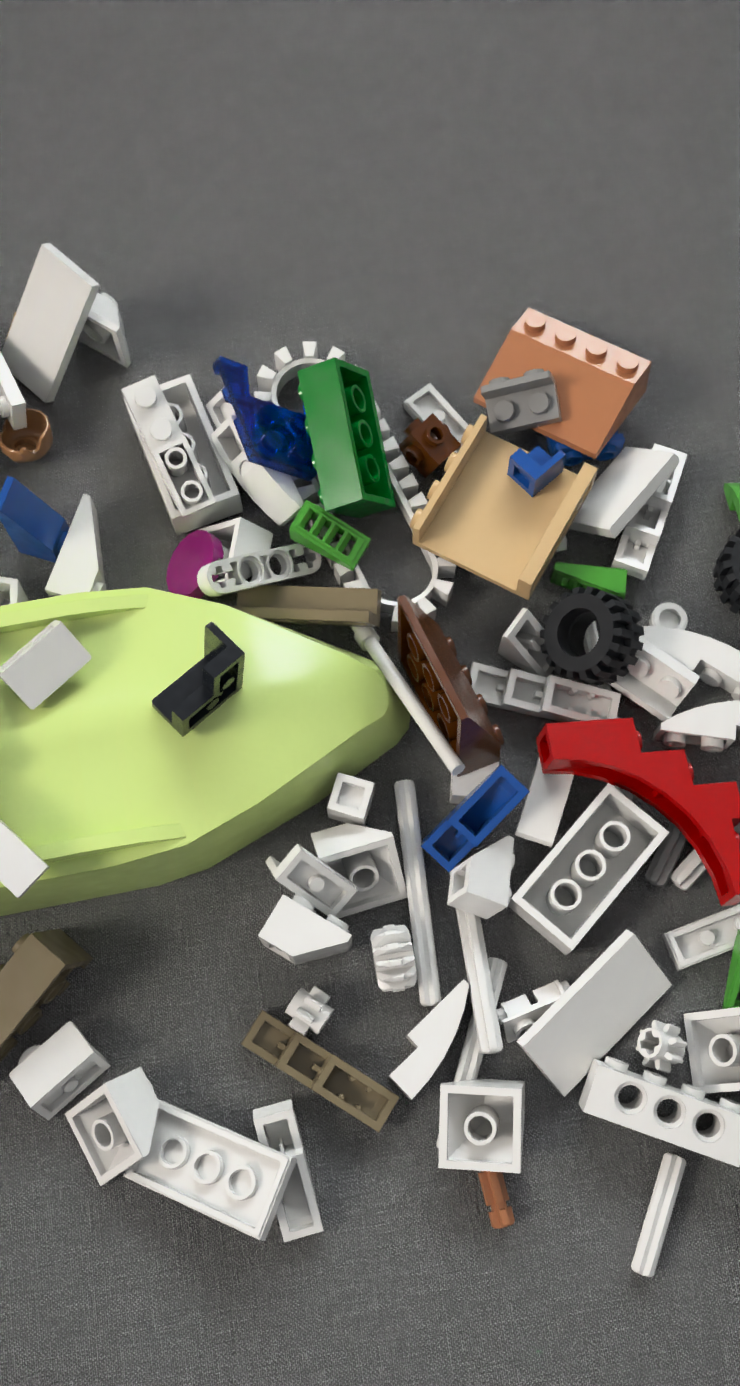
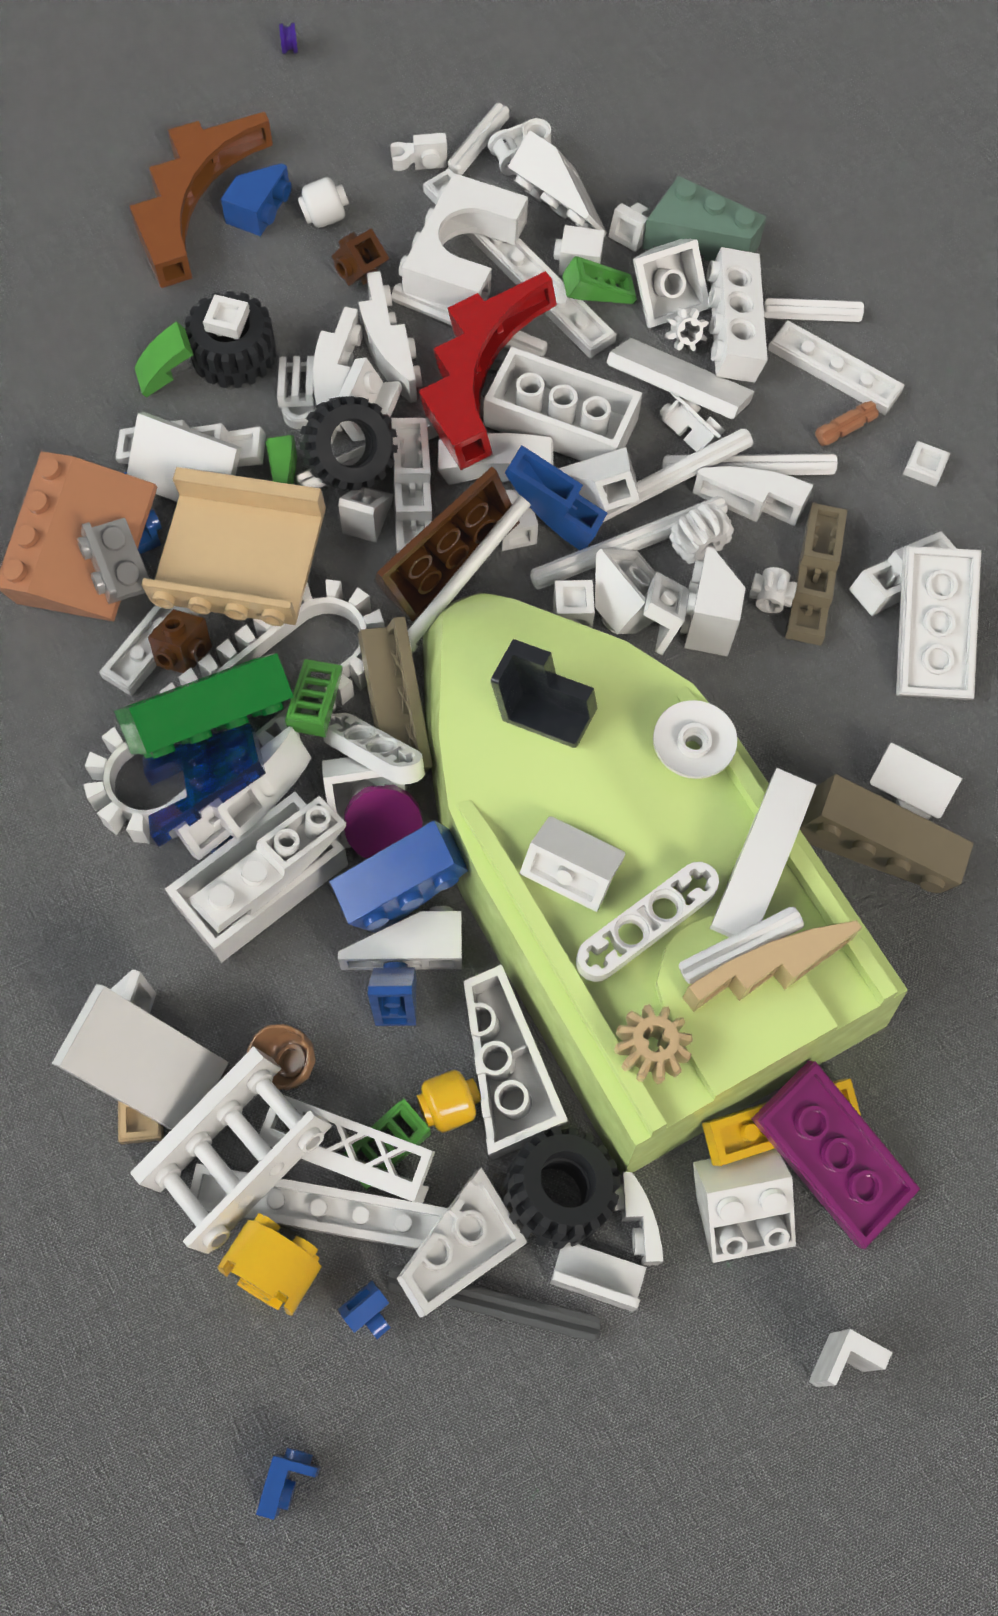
camera: 110 degrees left, 5 degrees down
(100, 796) = (698, 723): none -> white dish
(116, 1124) = (937, 712): white slope -> none
(118, 543) = (399, 878): none -> wedge
(417, 1259) = (926, 463): none -> white tile
(482, 1125) = (806, 428): white slope -> none
(535, 469) = (187, 527): blue panel -> none
(573, 1209) = (835, 367): none -> white tile
(724, 619) = (295, 367): none -> white tile

